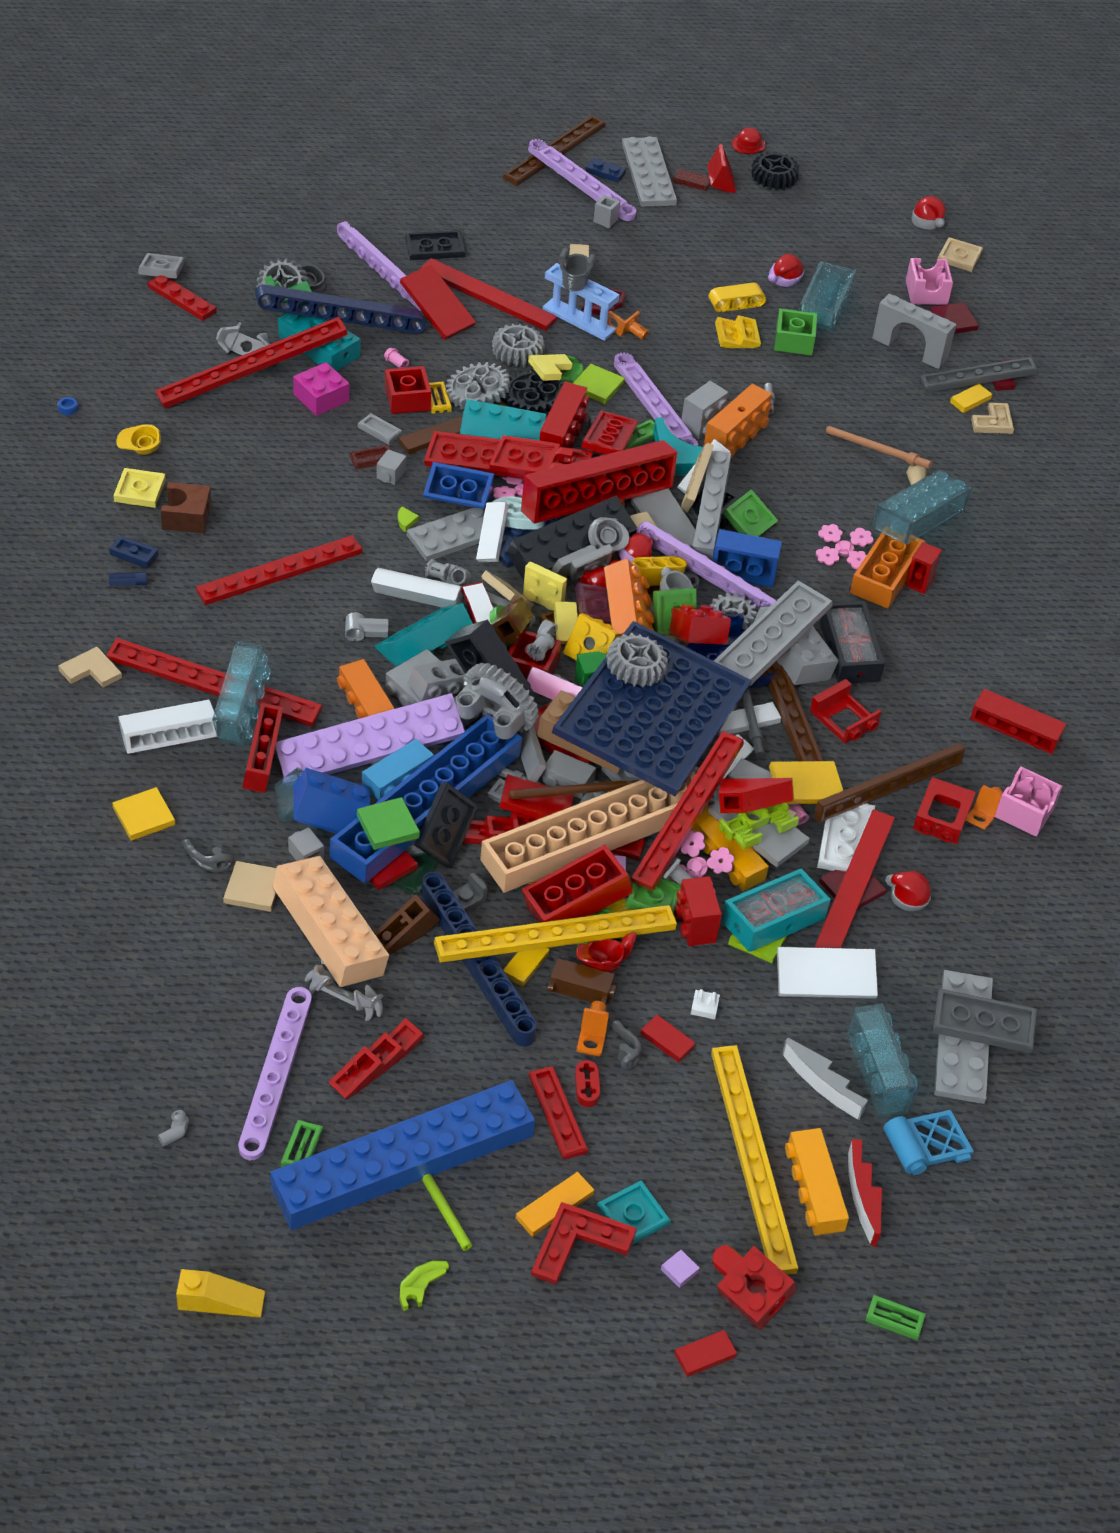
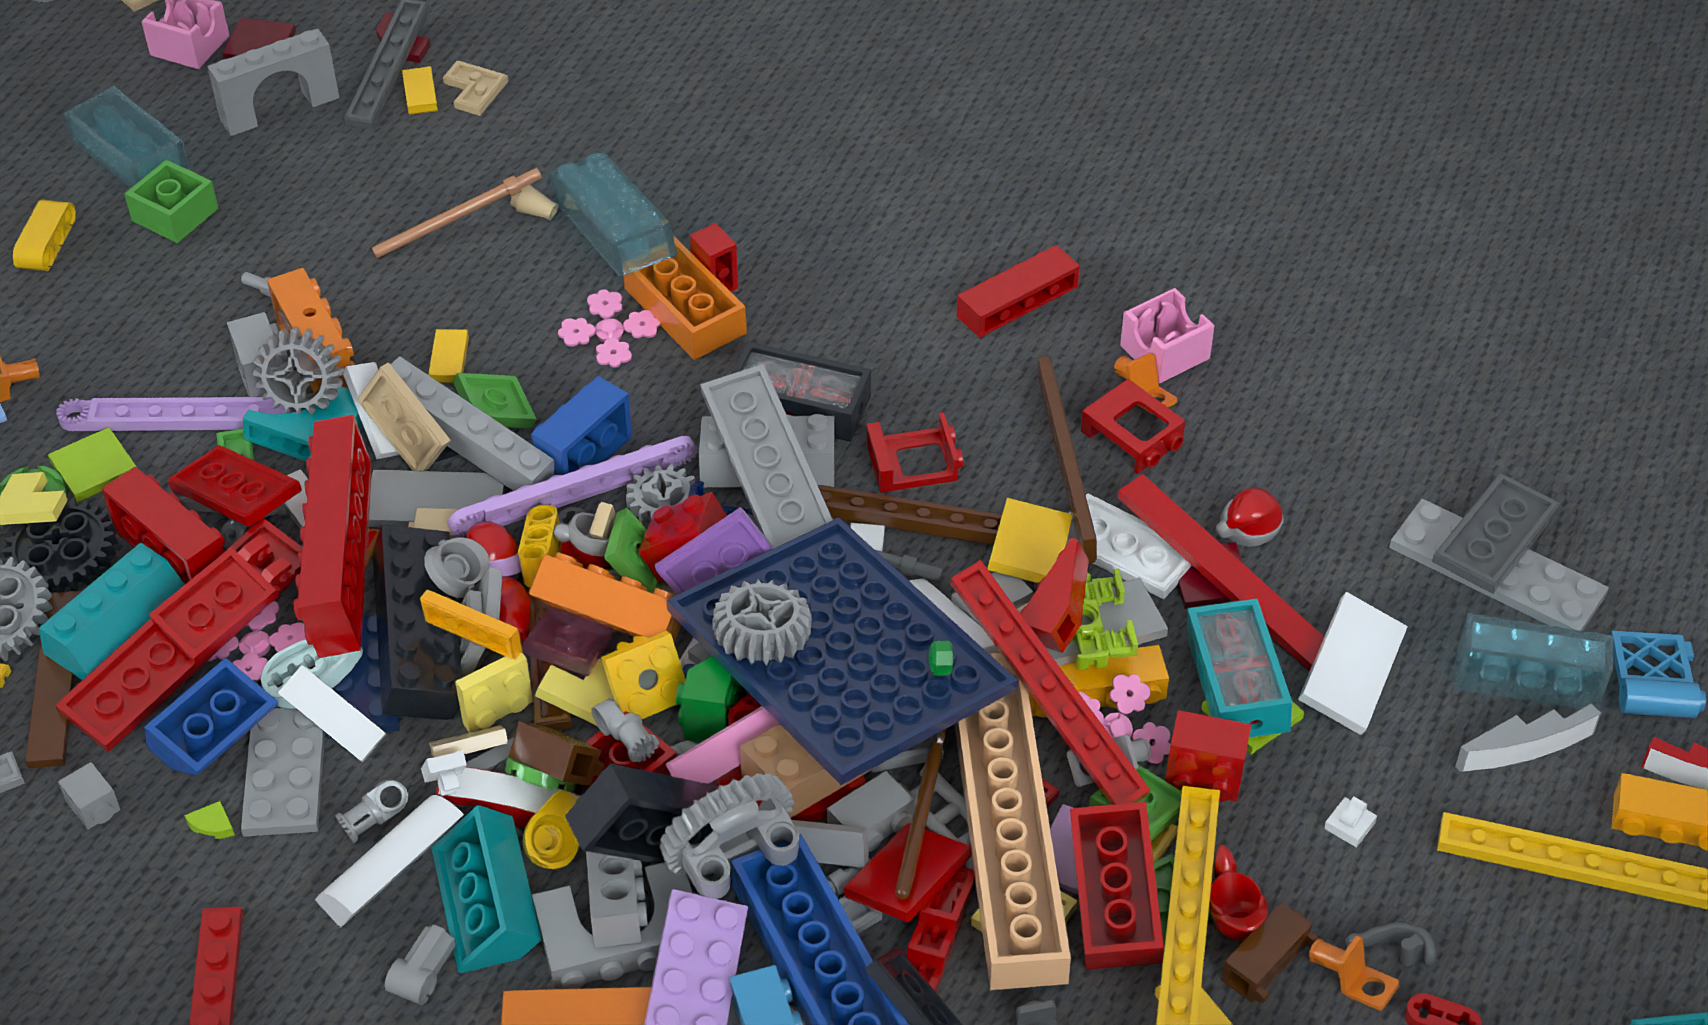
camera: 60 degrees left, 0 degrees up
(367, 457) = (37, 817): clear red tile -> none
(471, 580) = (445, 771): none -> white tile
(564, 549) = (471, 624): none -> light orange tile
(663, 746) = (941, 657): none -> green tile
(667, 1038) = (1394, 890): red tile -> none
(681, 582) = (603, 522): none -> tan tile
(688, 633) = (713, 552): none -> medium lavender tile
(695, 420) = (299, 348): none -> light grey gear
(737, 333) = (112, 266): yellow slope -> none
(774, 488) = (448, 354): none -> yellow tile
(786, 271) = (35, 161): red piece -> none

